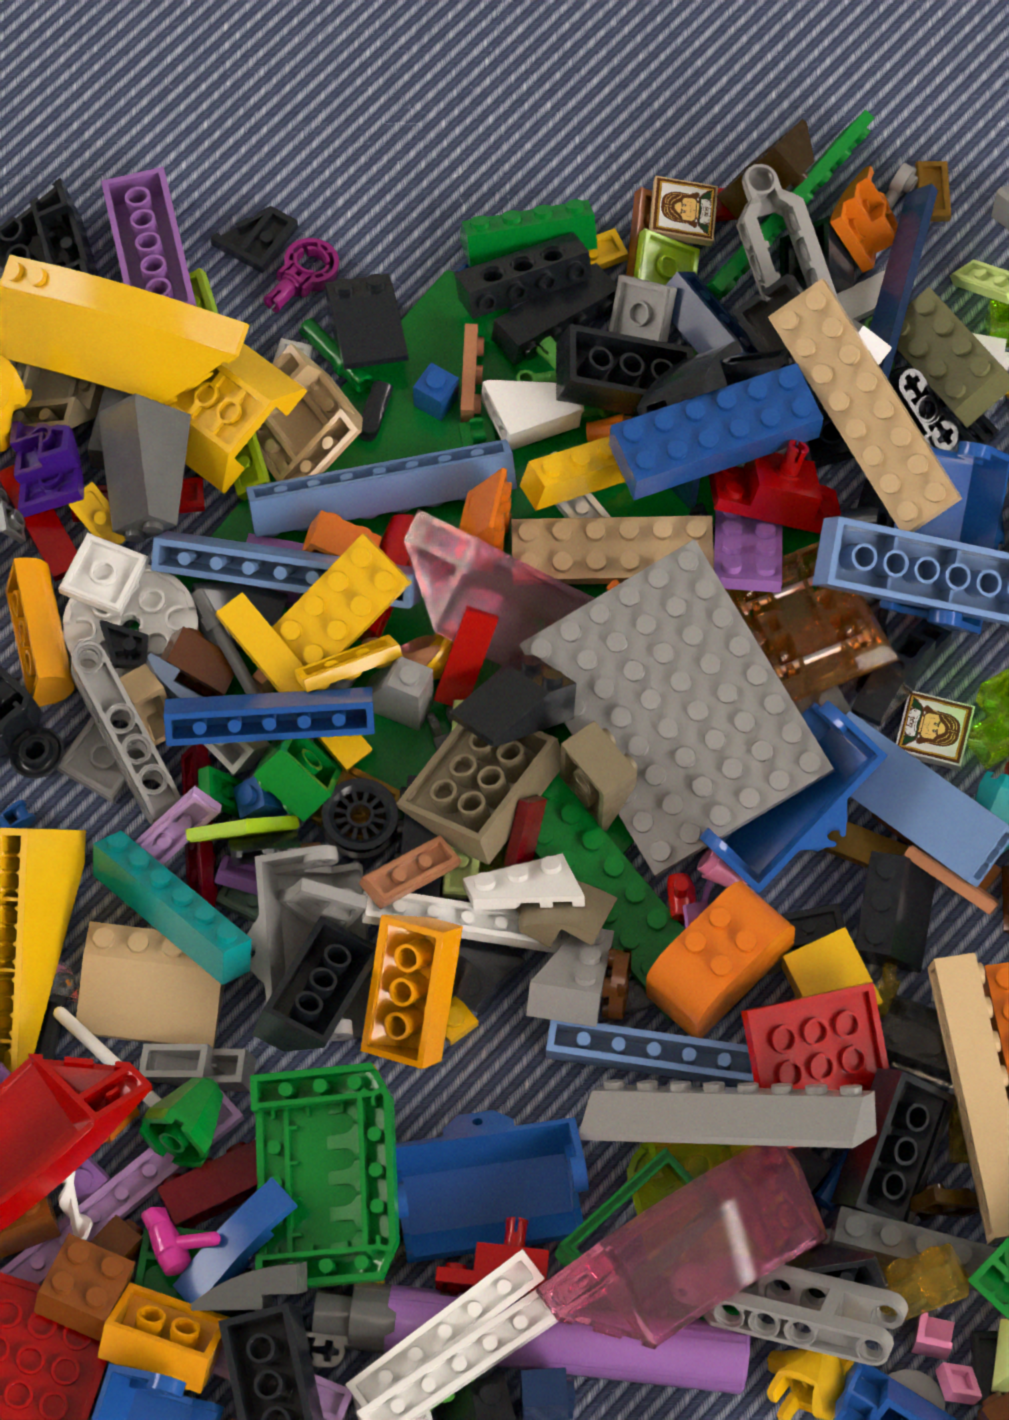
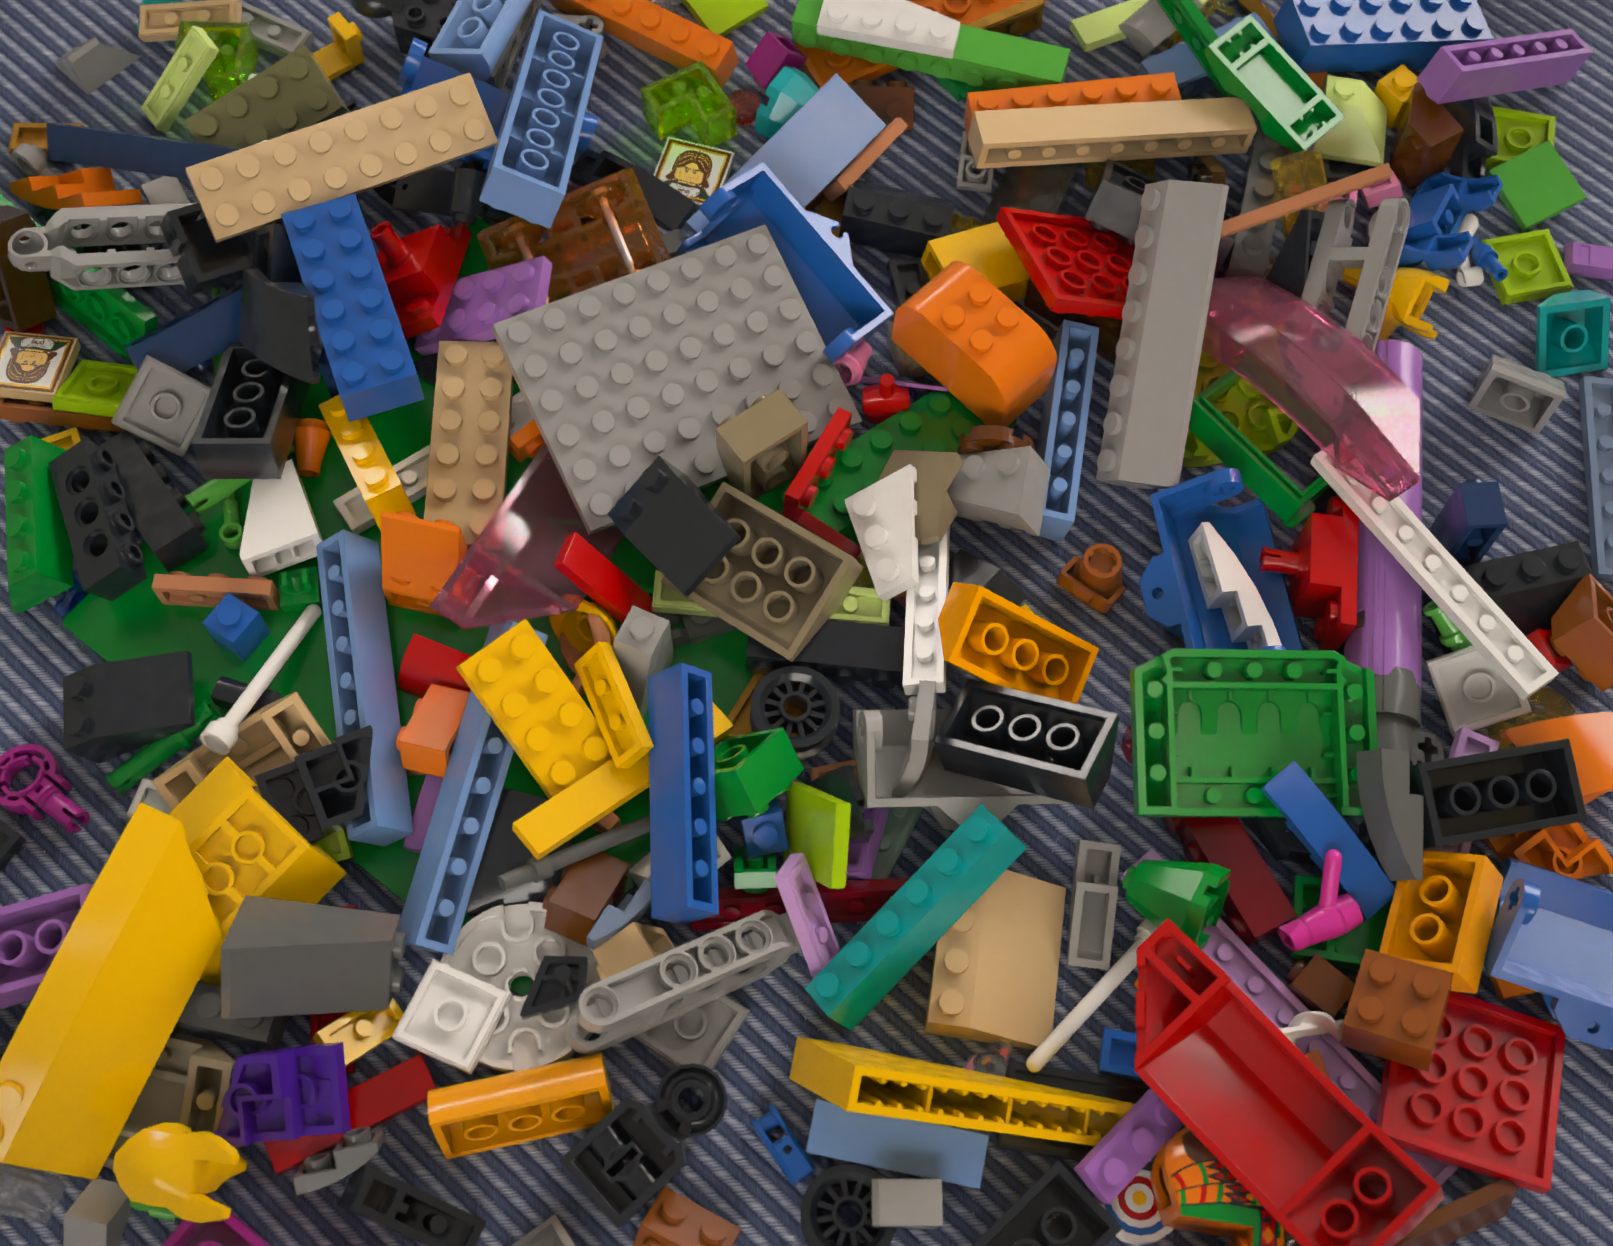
camera: 90 degrees left, 0 degrees up
(283, 459) = (322, 787): none -> black slope
(333, 388) = (222, 734): none -> white piece
(410, 872) = (880, 643): nougat tile -> none
(448, 1327) = (1417, 613): white plate -> none
(490, 1188) = (1230, 588): none -> white slope
(508, 1082) = (1095, 577): none -> dark orange piece
(596, 830) = (820, 461): none -> red plate
(883, 1245) = (1305, 200): none -> nougat tile

